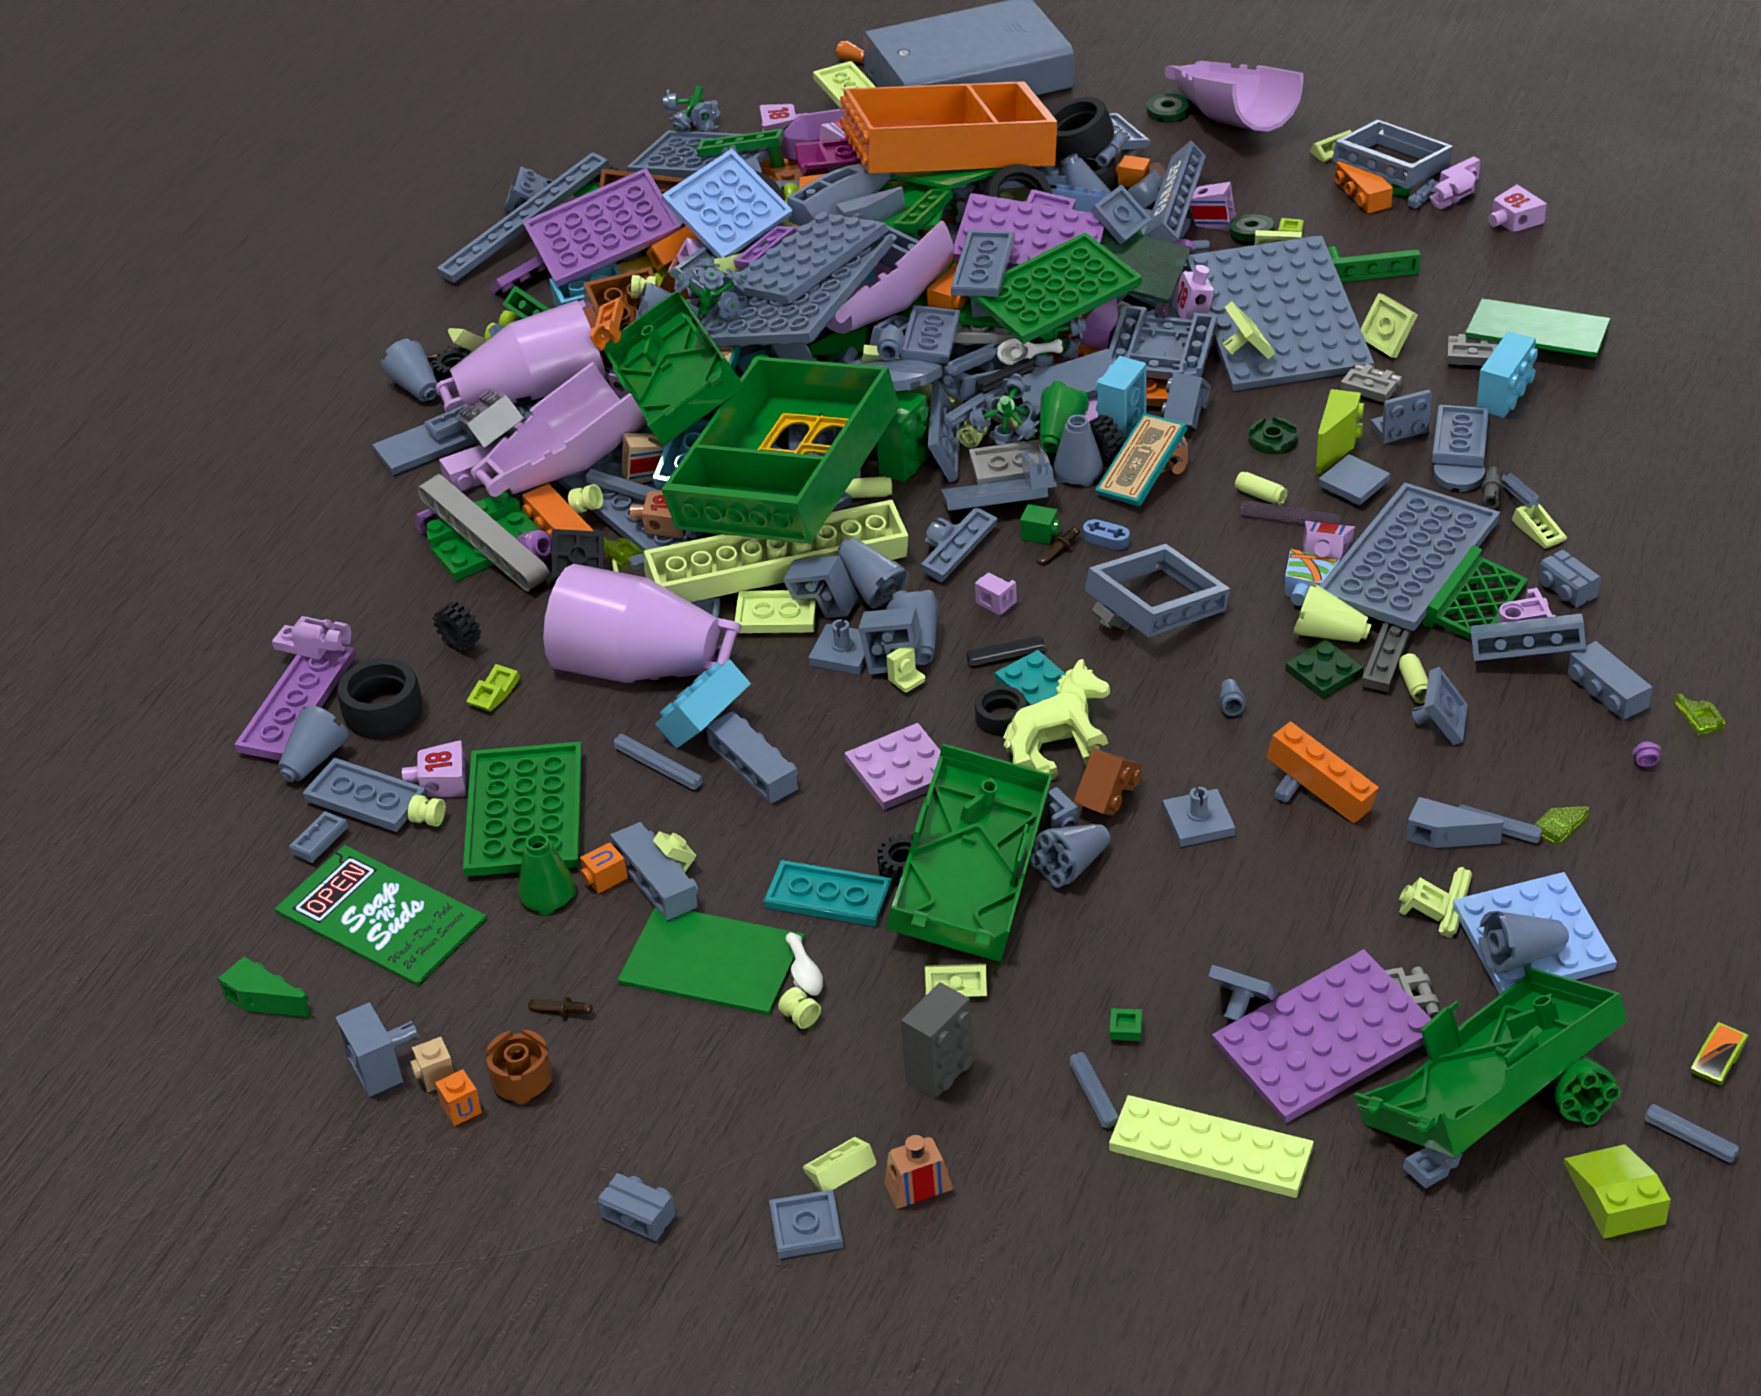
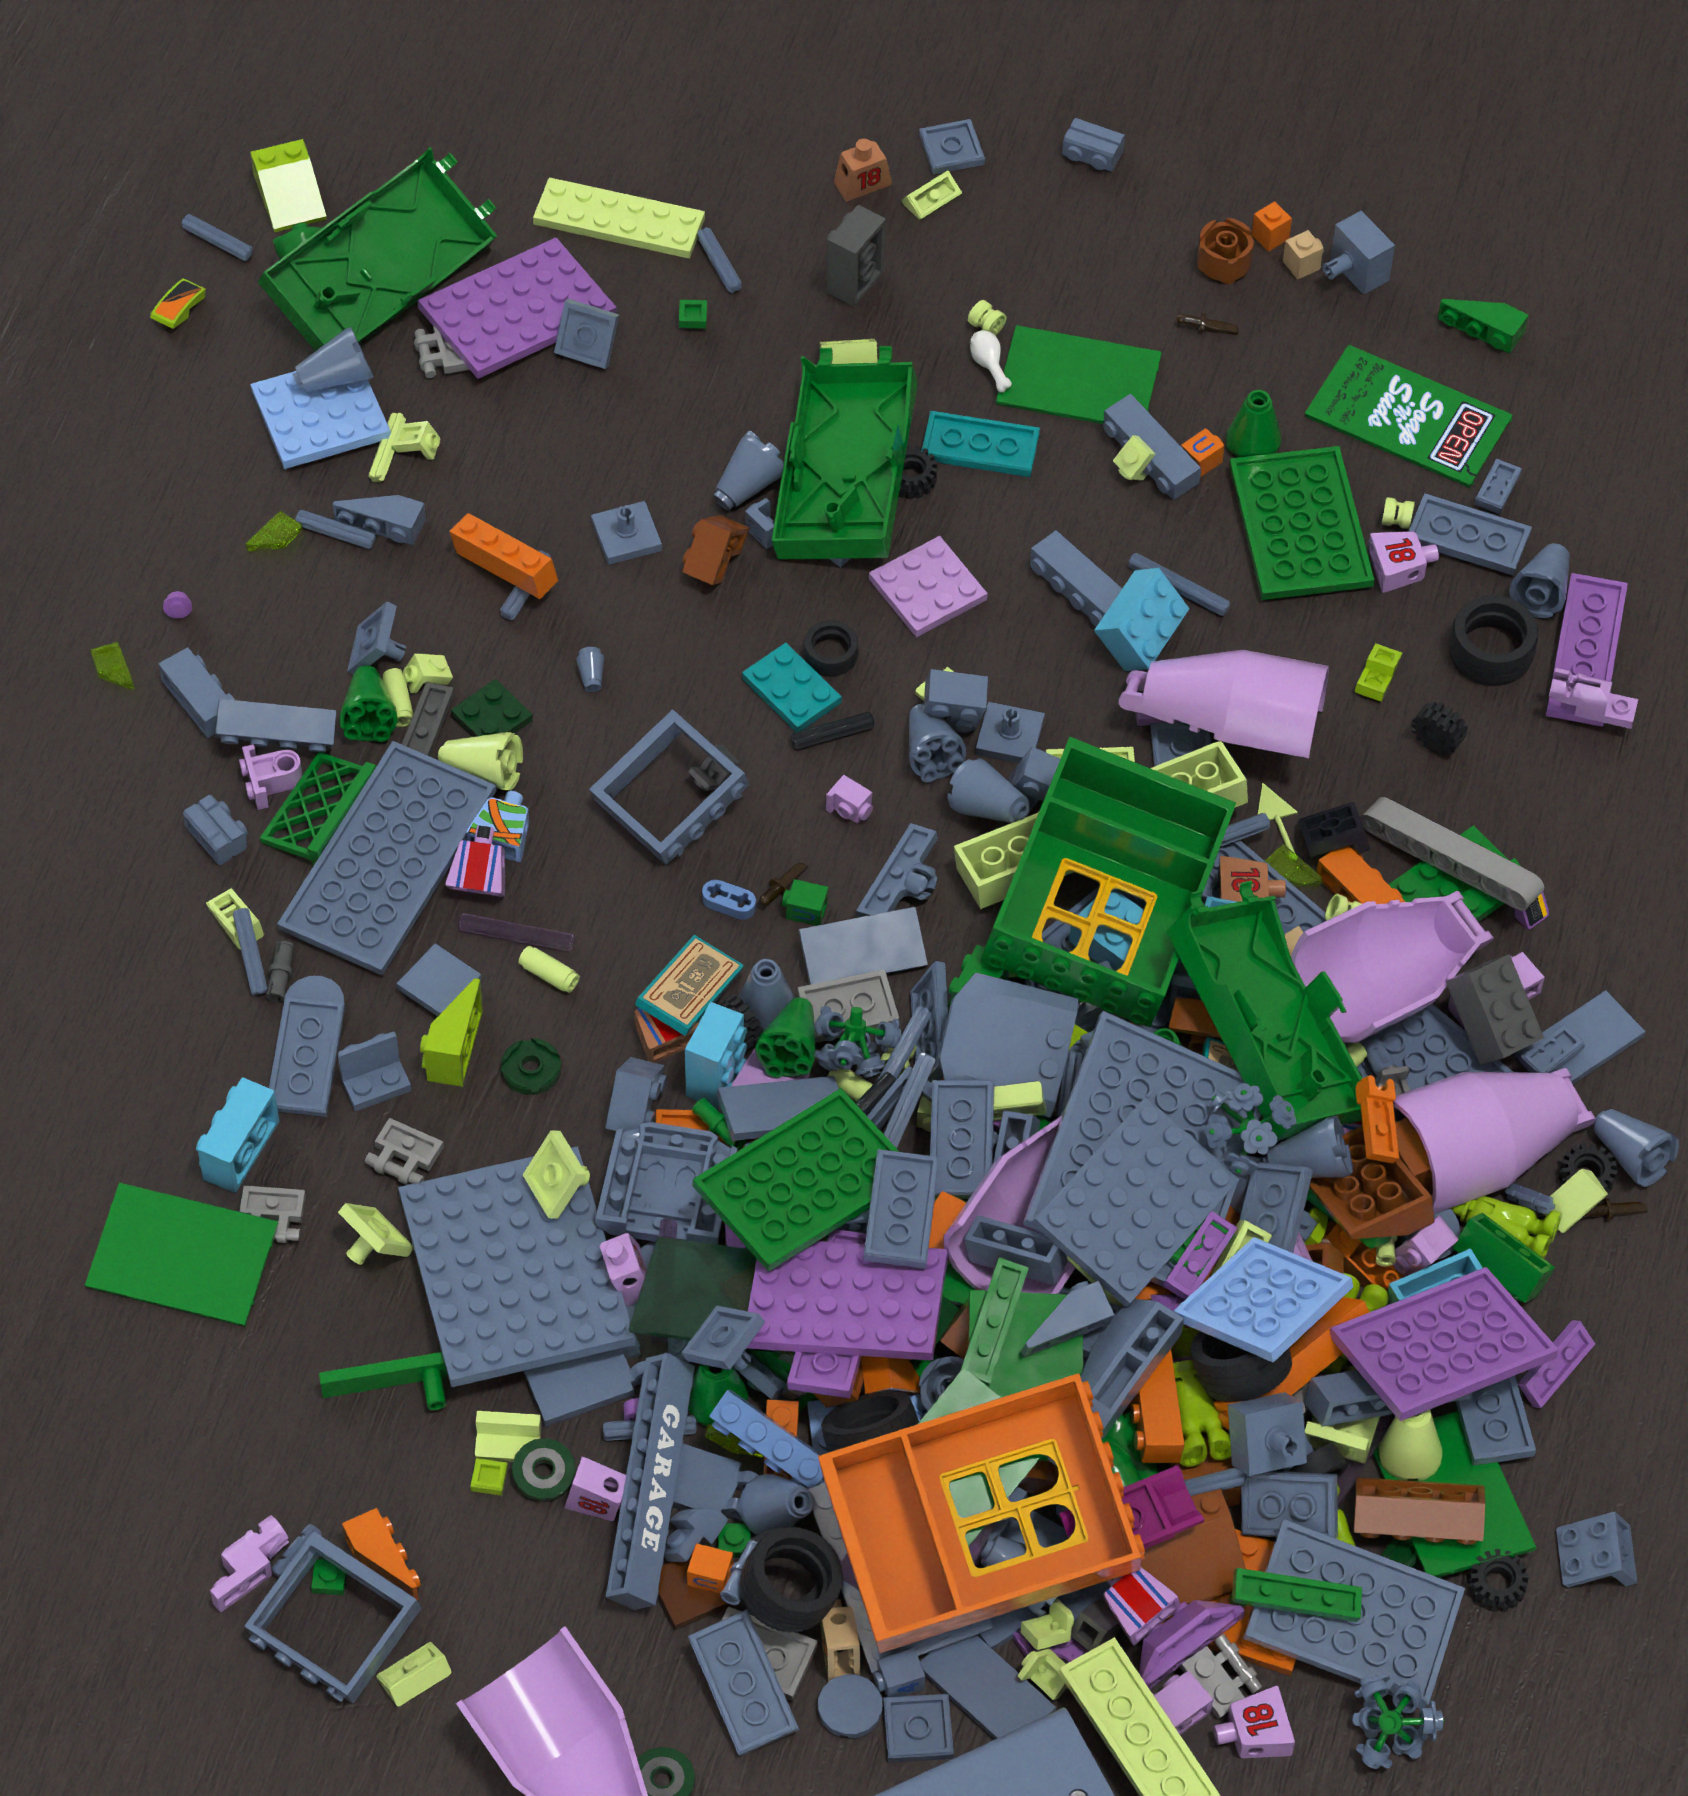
camera: 170 degrees right, 15 degrees up
(513, 224) = (1583, 1471): sand blue plate -> none
(537, 542) = (1389, 854): medium lavender head -> none
(638, 283) = (1356, 1187): yellowish green wheel -> none
(890, 343) = (1007, 1086): sand blue brick -> none
(1037, 474) = (811, 952): sand blue hinge -> none
(1058, 719) = (771, 619): yellowish green animal -> none
(1388, 695) = (426, 668): none -> yellowish green bracket
(1442, 648) = (368, 708): none -> green cone
(1517, 210) = (173, 1499): lavender torso -> none

